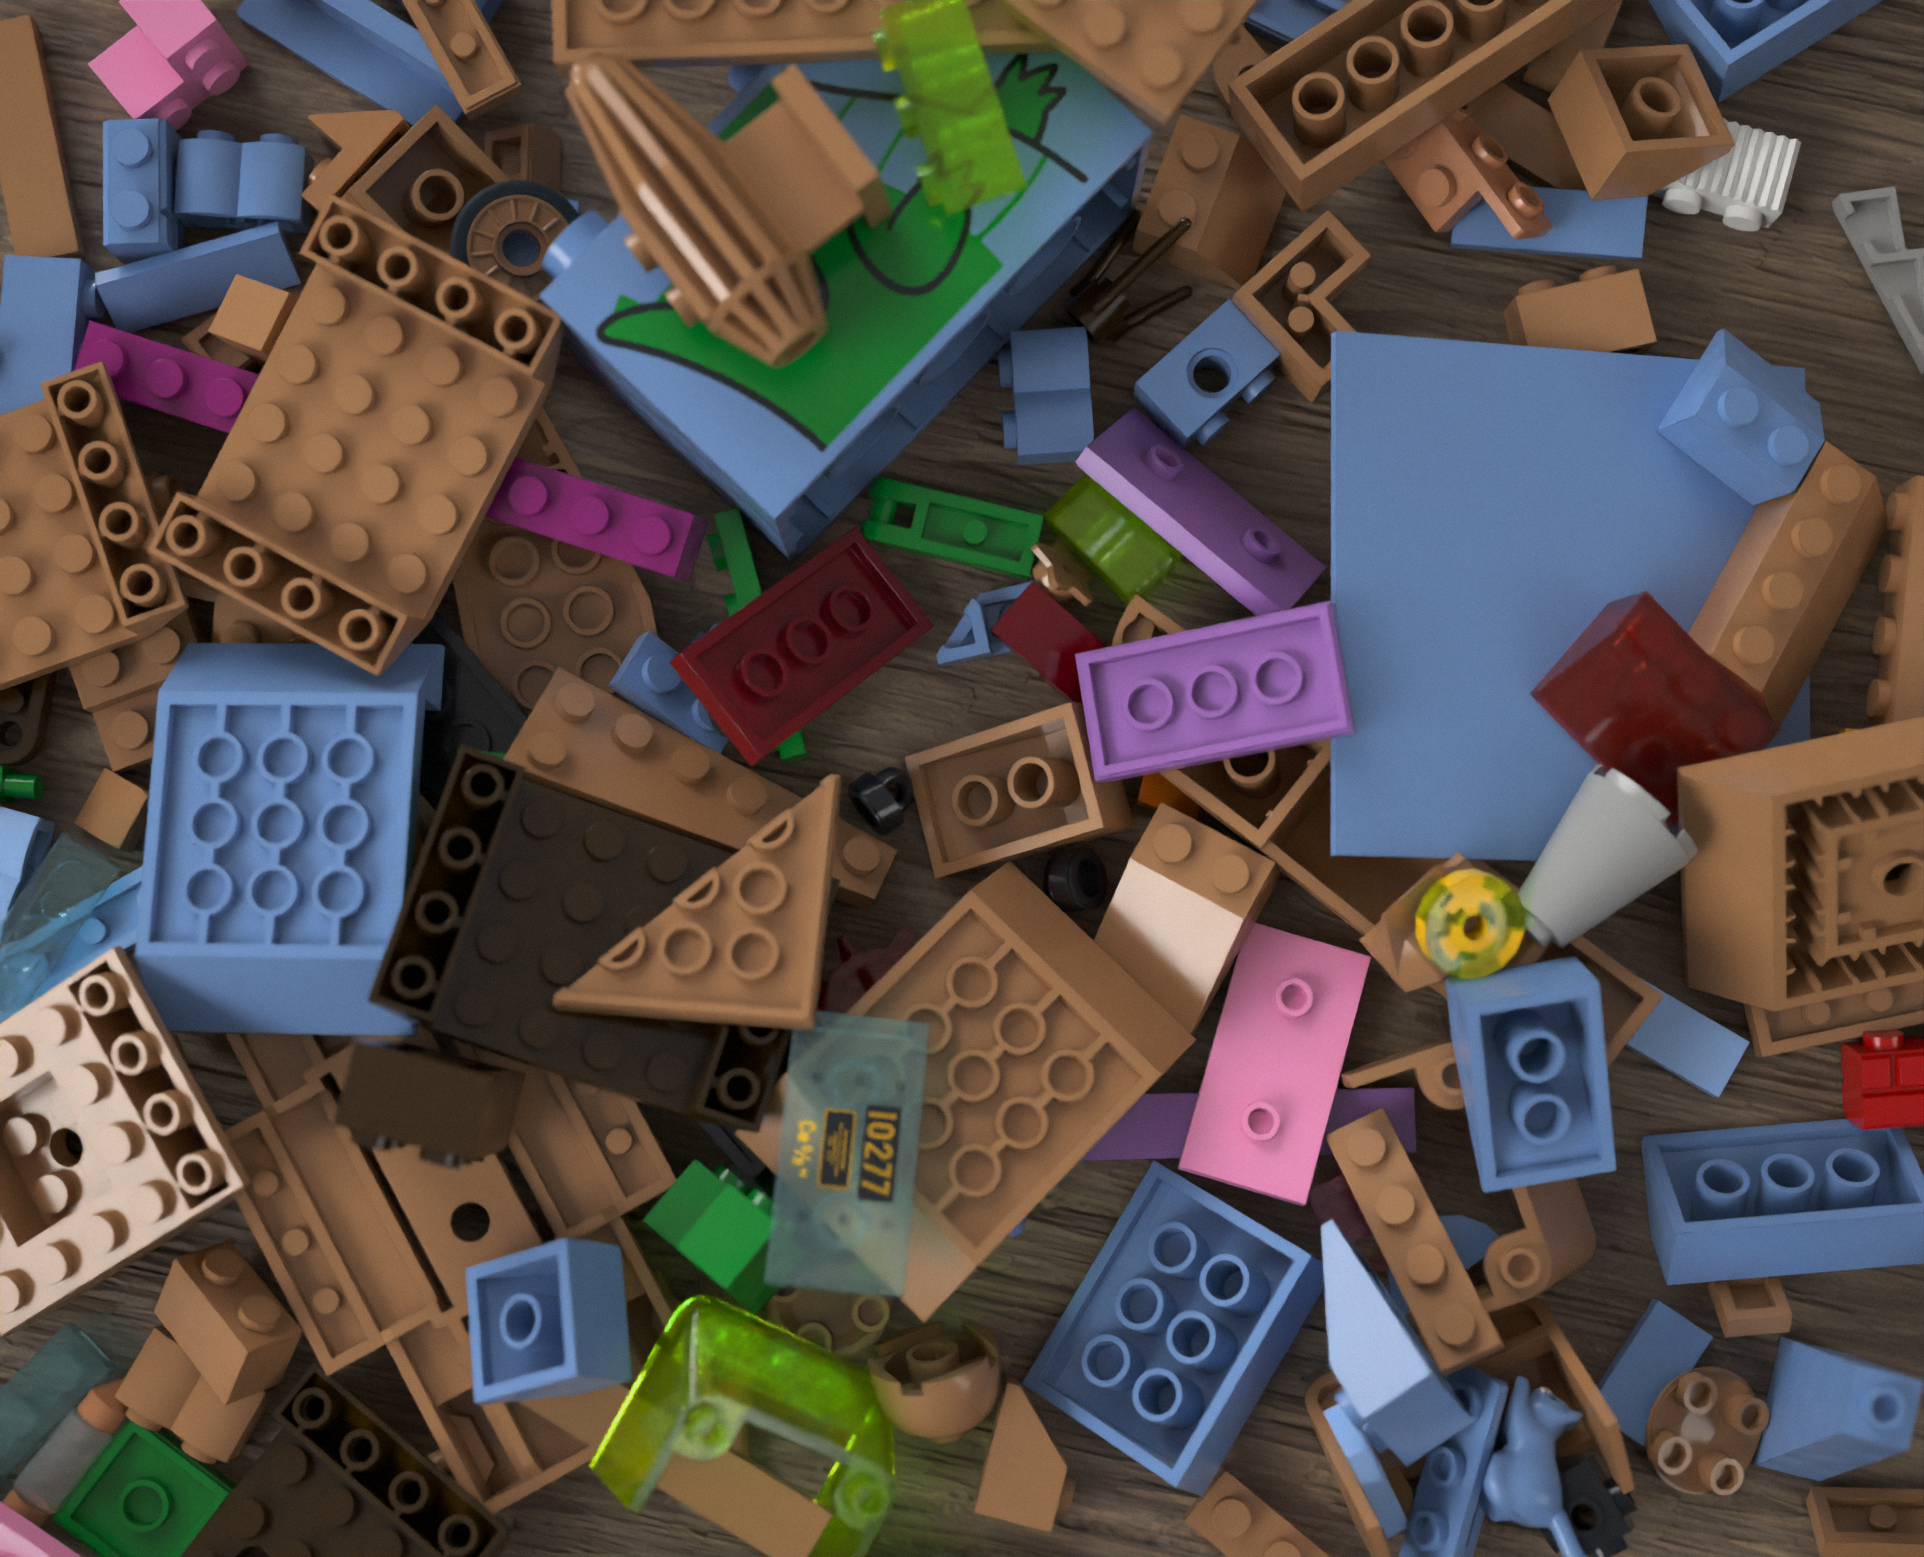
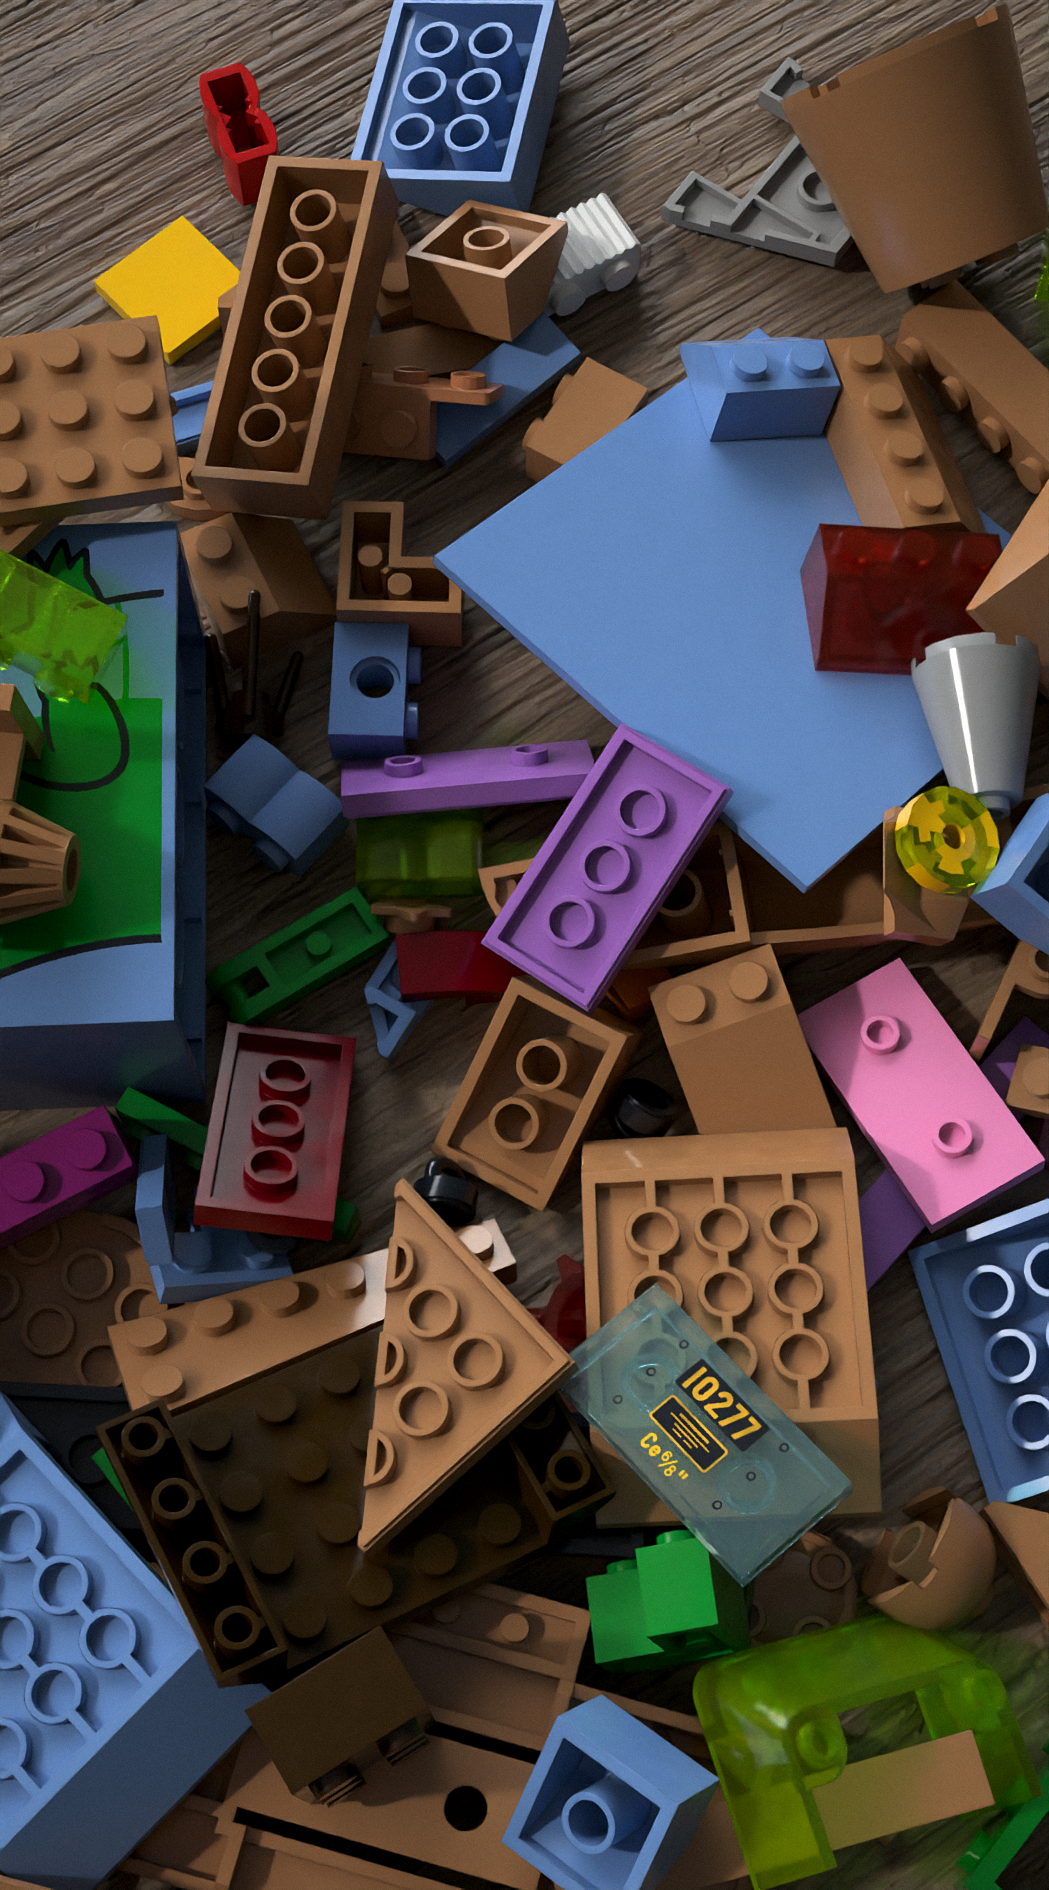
camera: 45 degrees left, 15 degrees down
(673, 612) = (156, 1200): none -> medium blue tile

